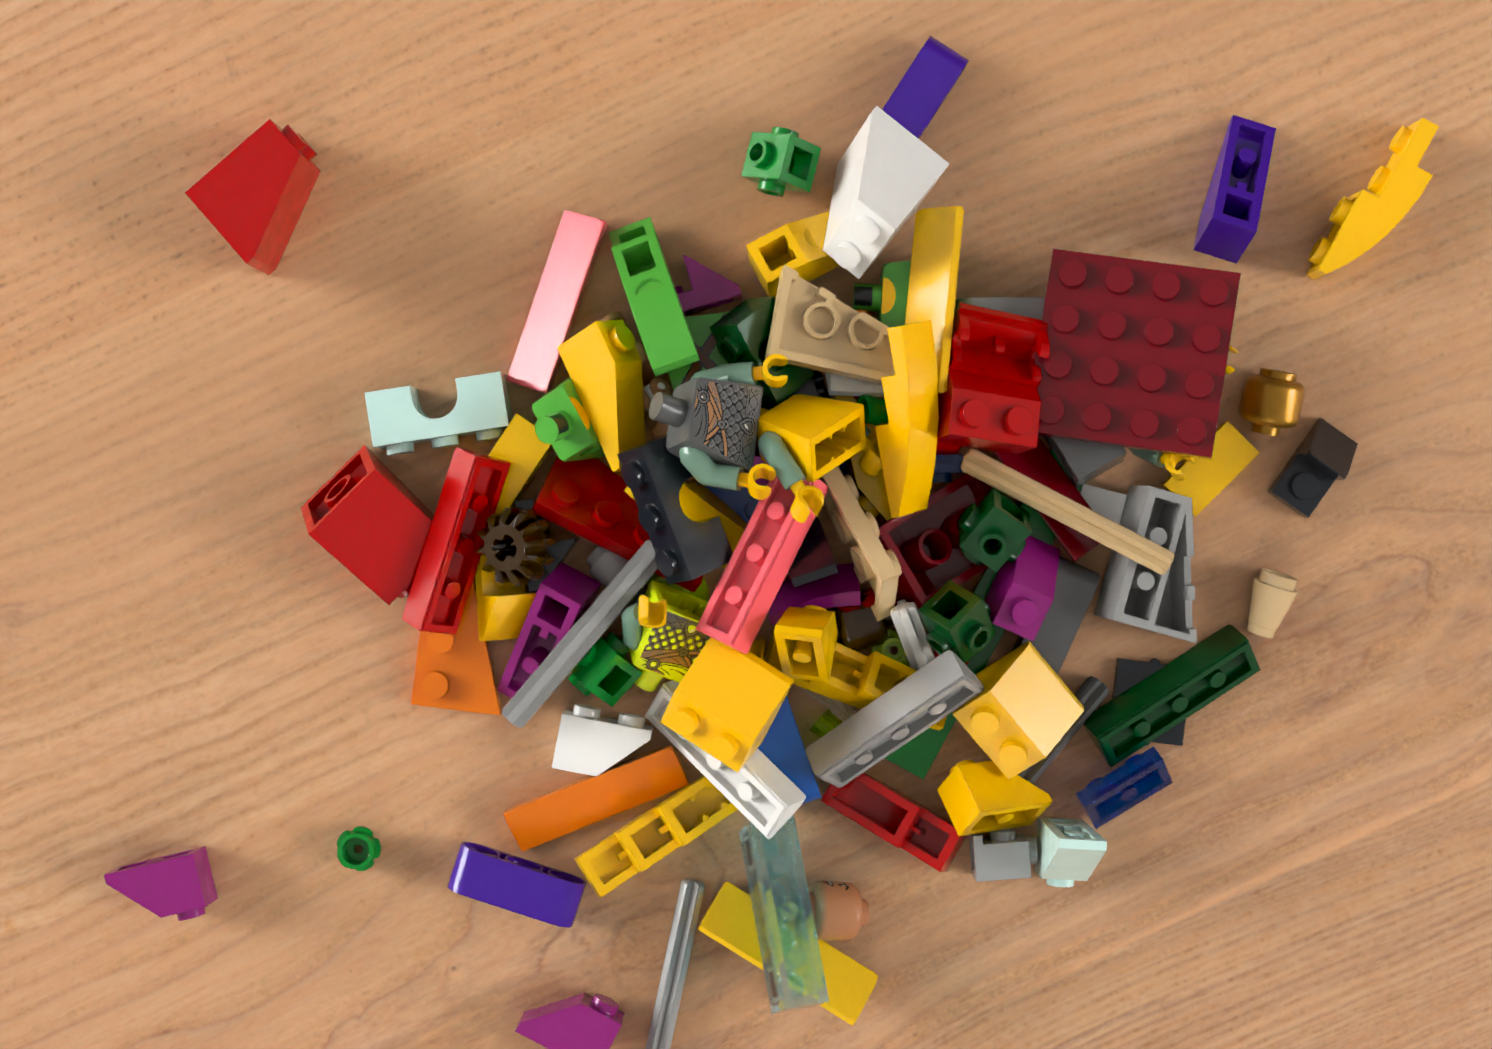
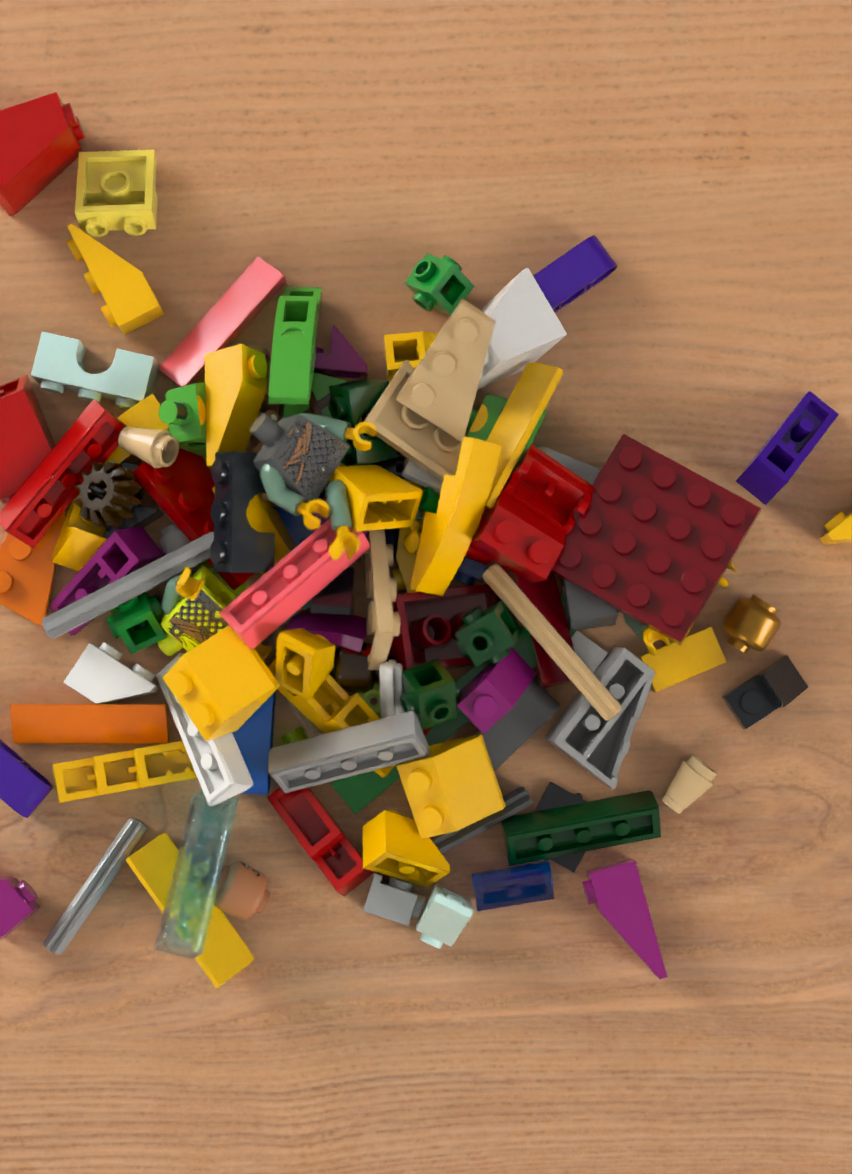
camera: 25 degrees right, 5 degrees down
(378, 201) = (116, 192): none -> light yellow plate
(428, 303) = (123, 286): none -> yellow slope
(541, 473) = (150, 445): none -> tan cone
(844, 260) = (450, 371): none -> tan wing
(1246, 755) = (622, 902): none -> magenta slope

